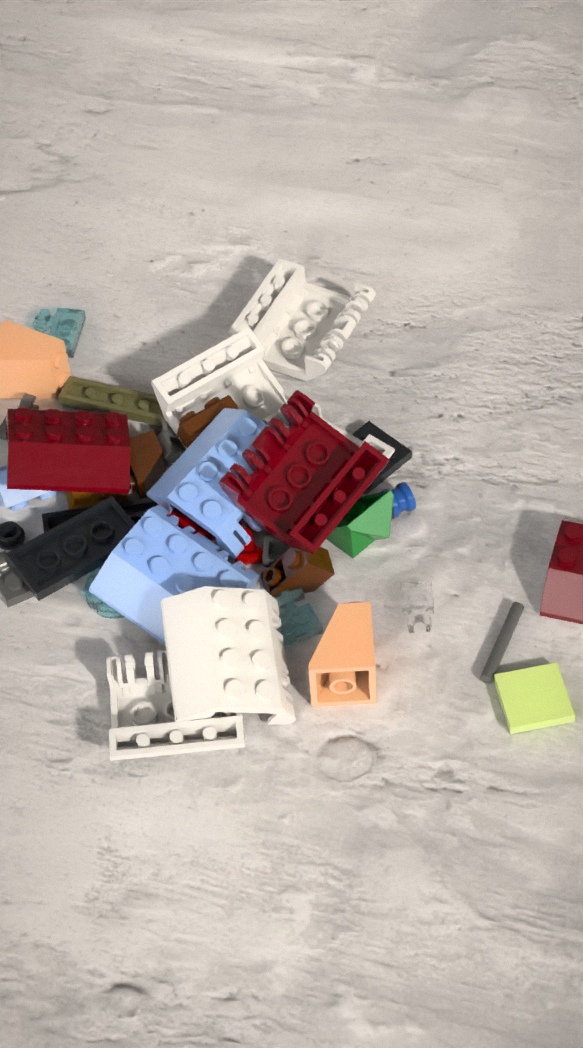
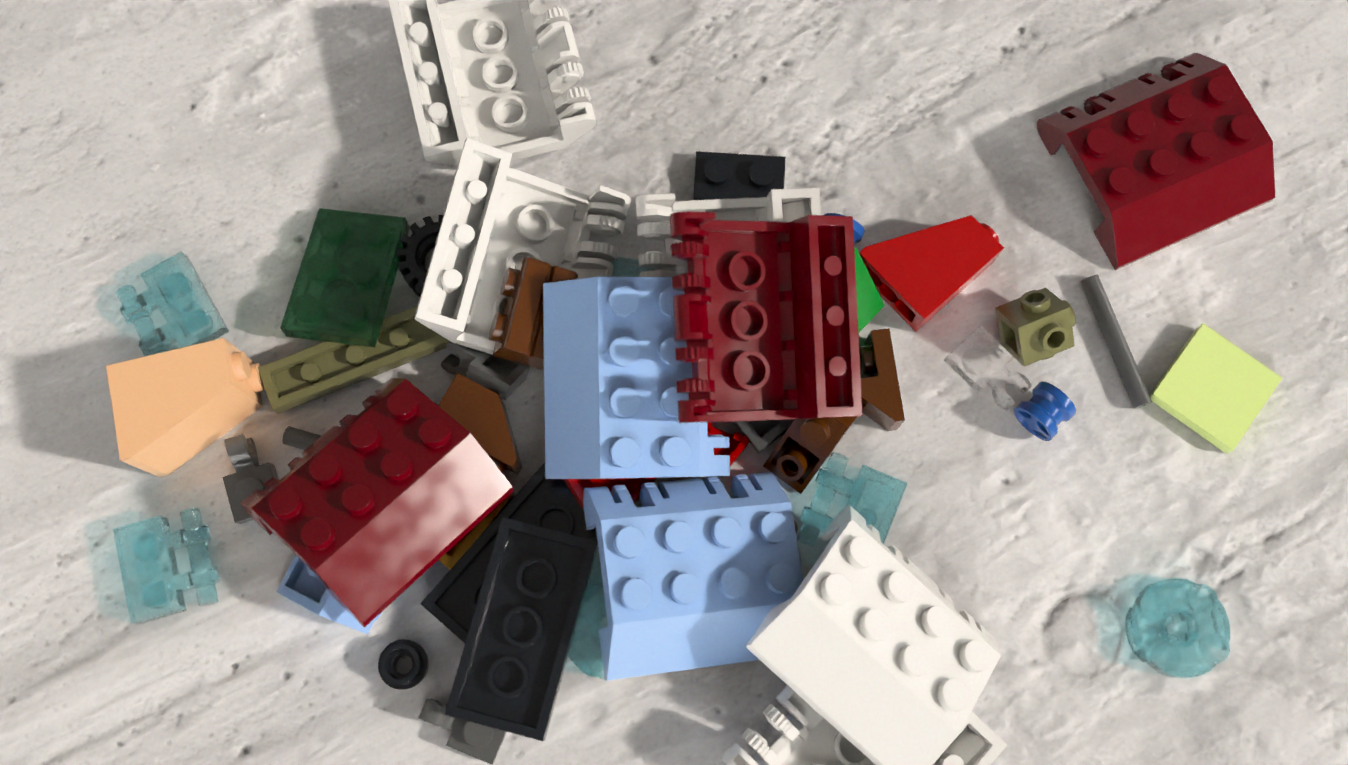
camera: 45 degrees left, 25 degrees up
(137, 366) = (345, 278): none -> clear green plate
(345, 659) = (998, 513): light nougat slope -> none
(352, 574) = (881, 388): none -> reddish brown slope
(392, 768) = (1196, 605): none -> clear light blue plate
(426, 641) = (1045, 411): none -> blue wheel
(435, 542) = (930, 266): none -> red slope
(449, 602) = (1036, 326): none -> olive brick

